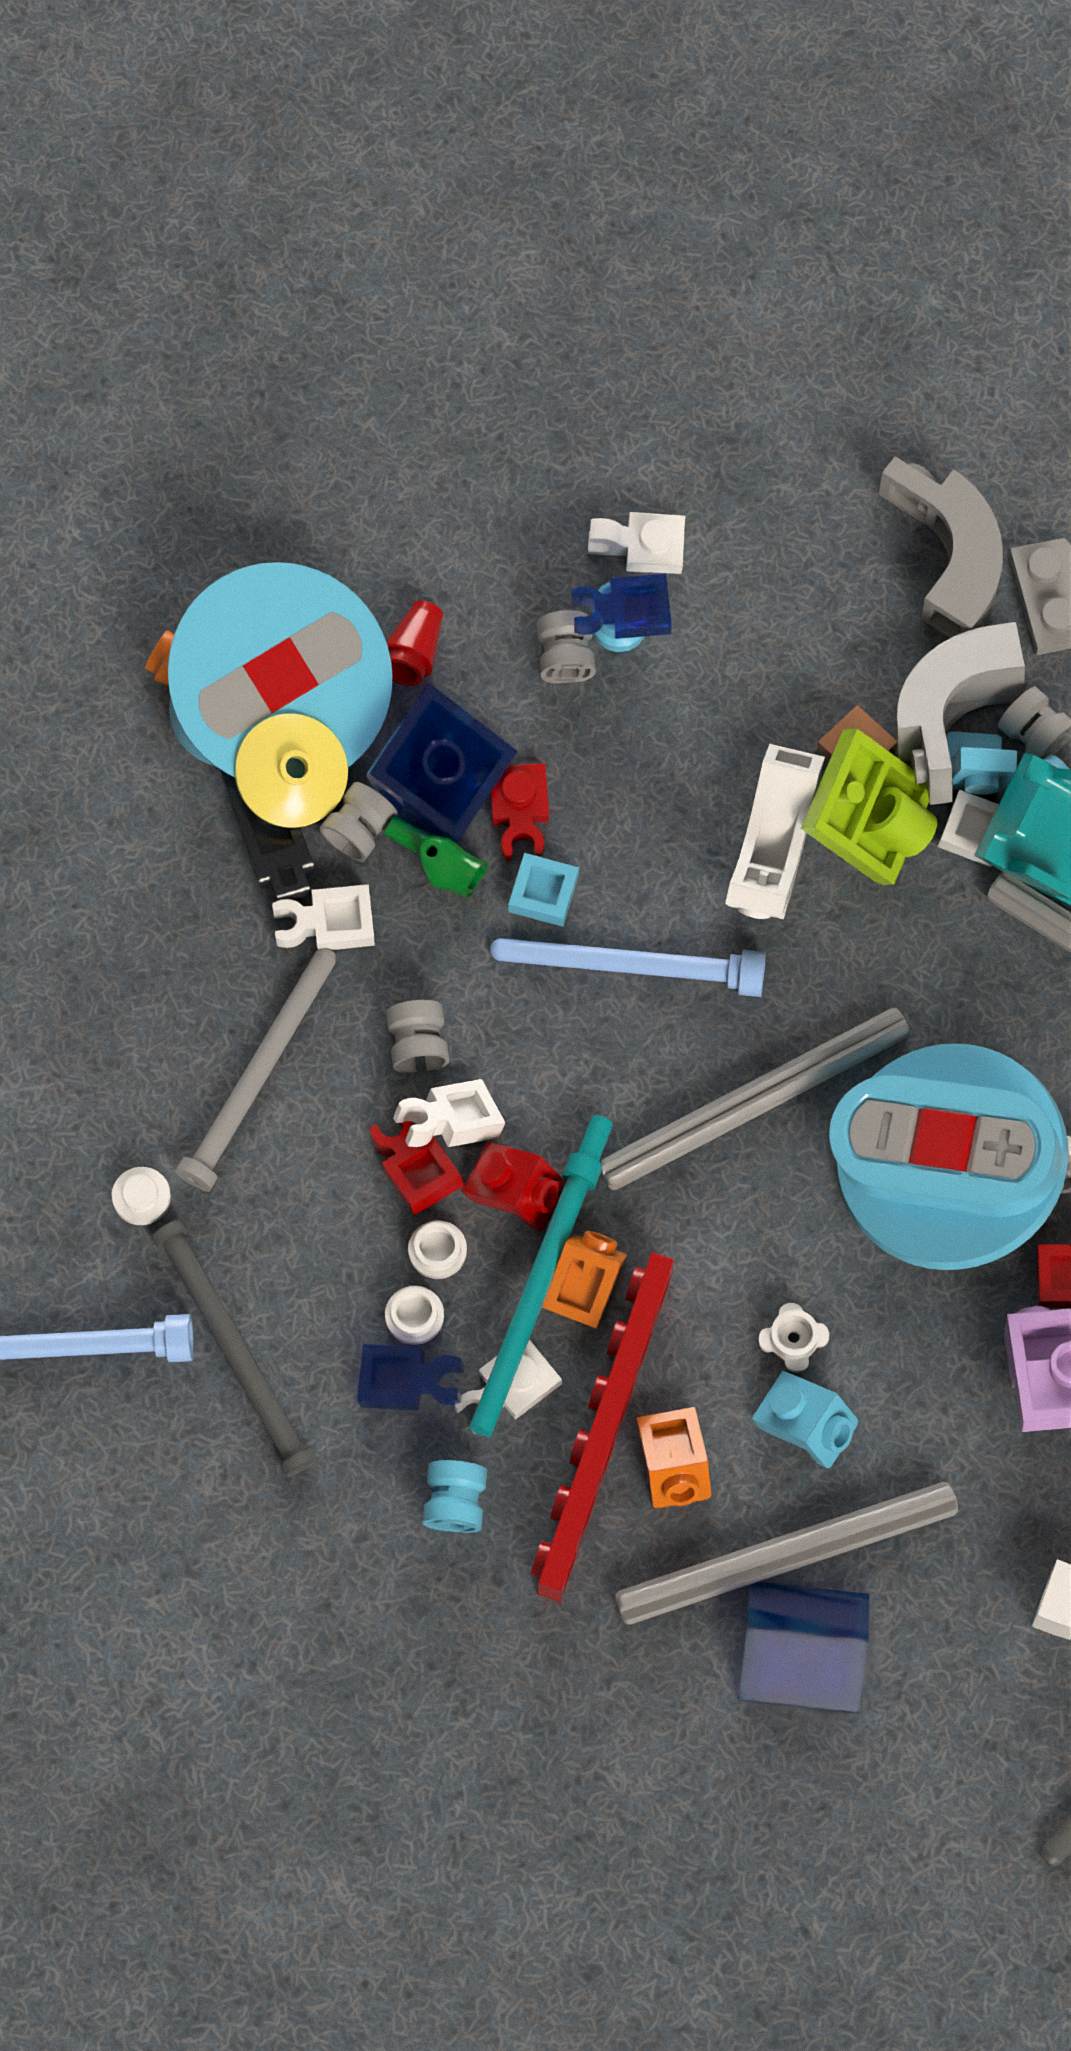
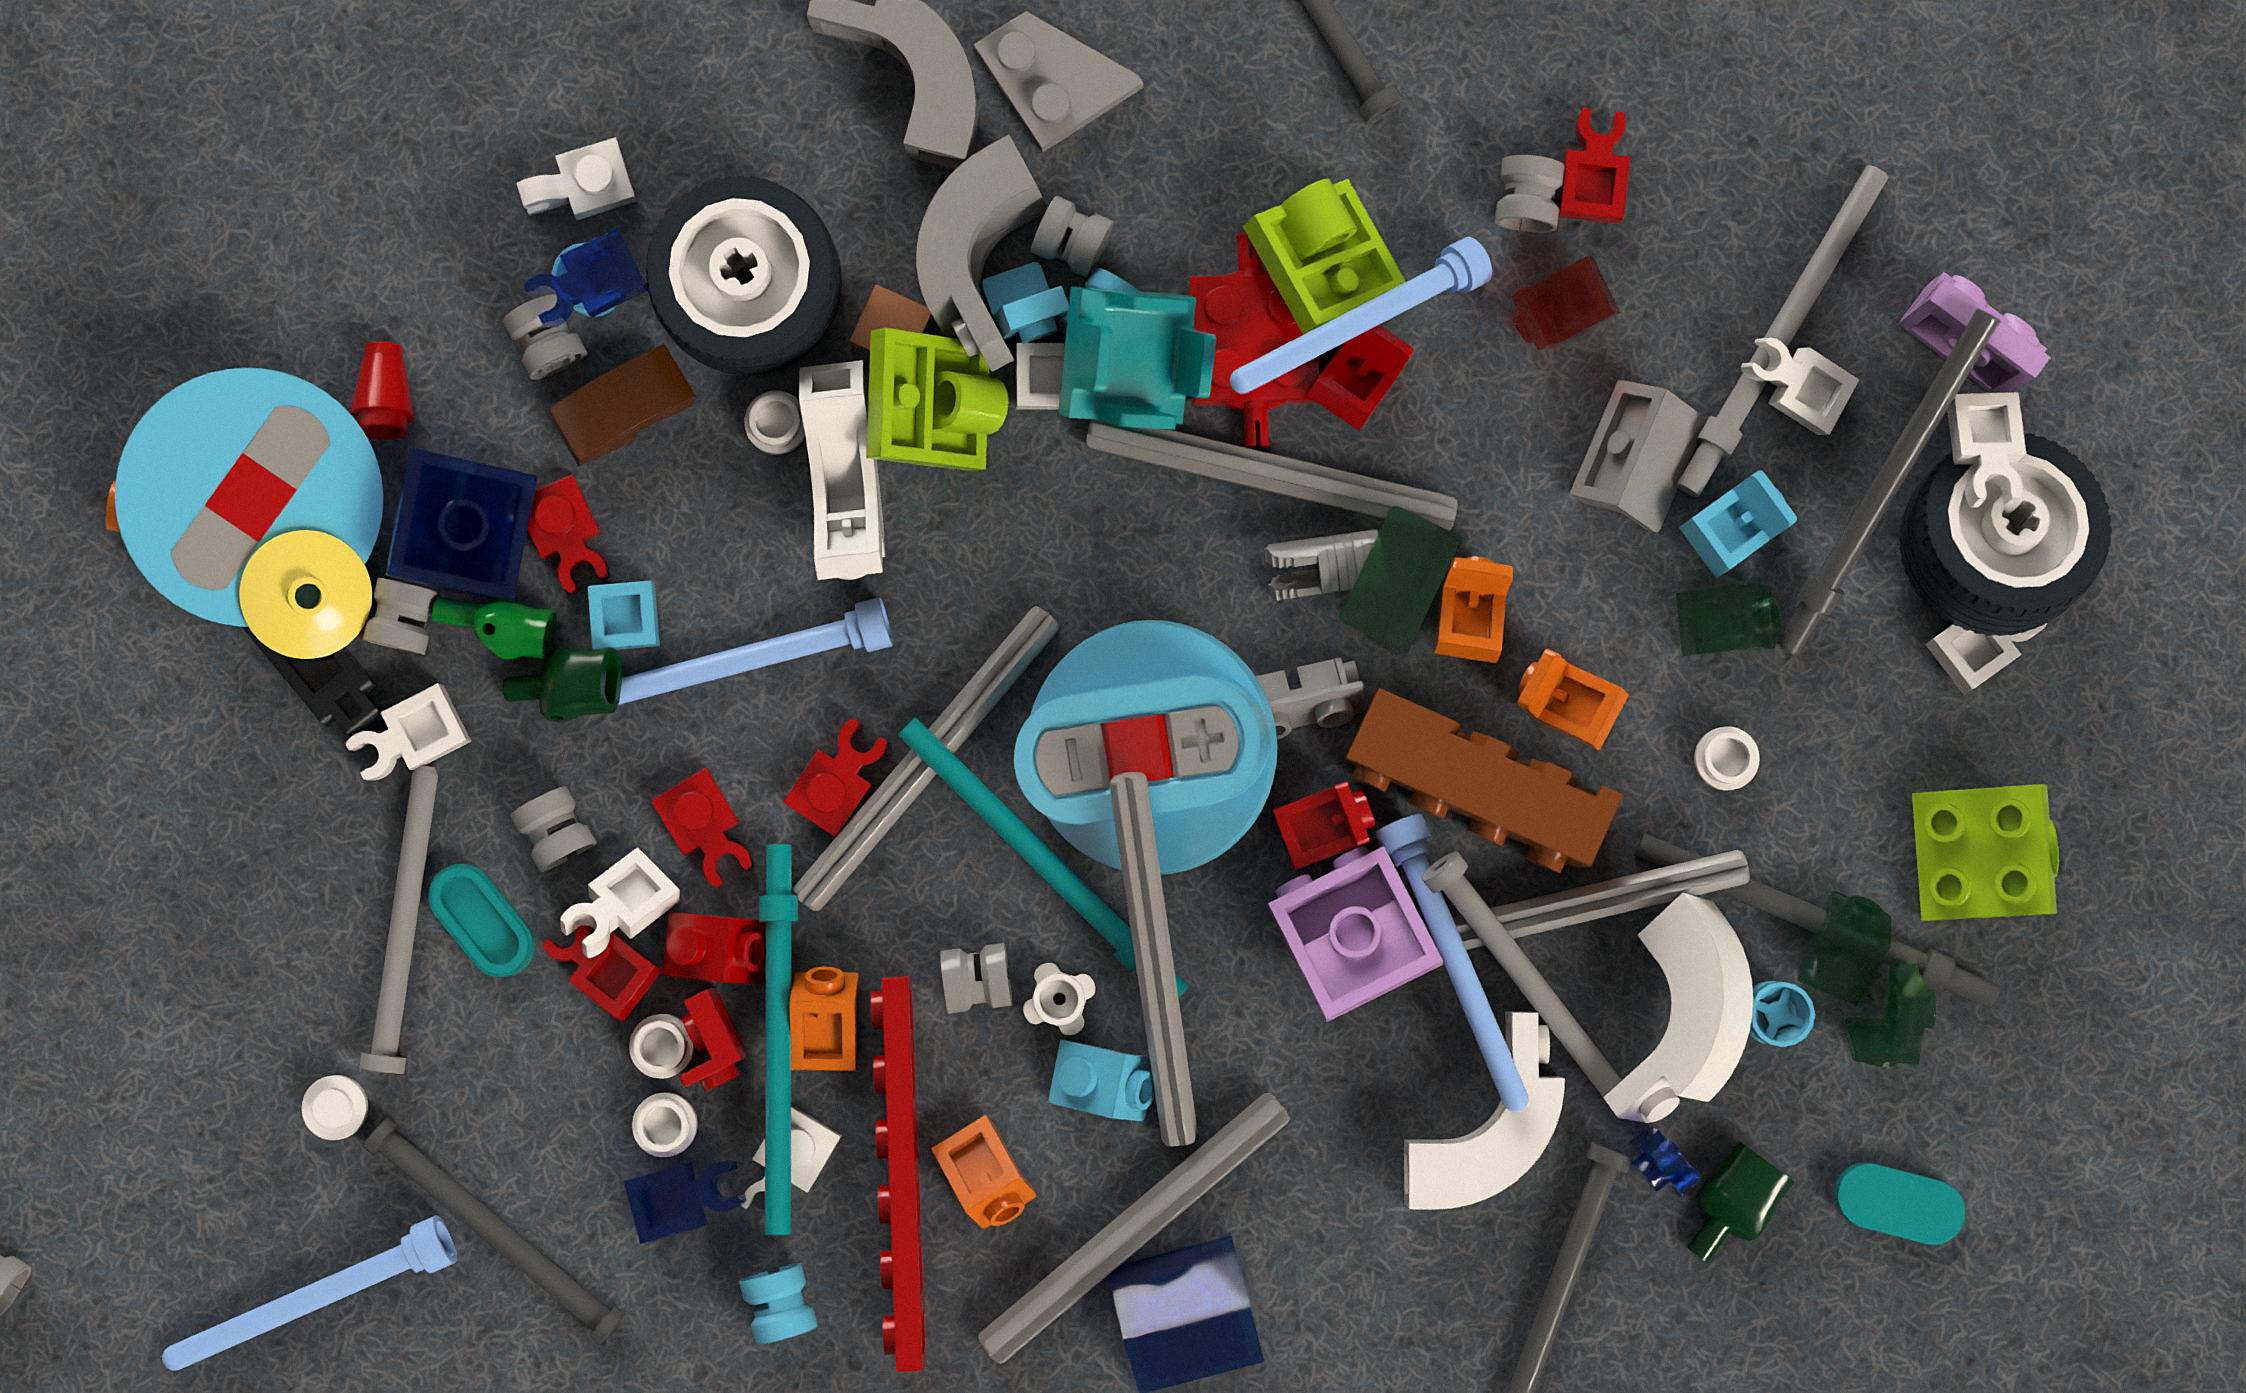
camera: 20 degrees left, 15 degrees up
(325, 1092) = (481, 920): none -> teal tile
(479, 926) = (571, 684): none -> dark green piece
(487, 1247) = (713, 1029): none -> red bracket
(543, 1076) = (699, 817): none -> red plate
(608, 719) = (620, 403): none -> reddish brown slope
(666, 1092) = (830, 787): none -> red plate
(729, 1290) = (961, 978): none -> light grey wheel
(730, 784) = (775, 422): none -> white plate
(751, 656) = (732, 230): none -> wheel
(872, 1318) = (1025, 843): none -> teal bar
(891, 1323) = (1153, 958): none -> light grey axle

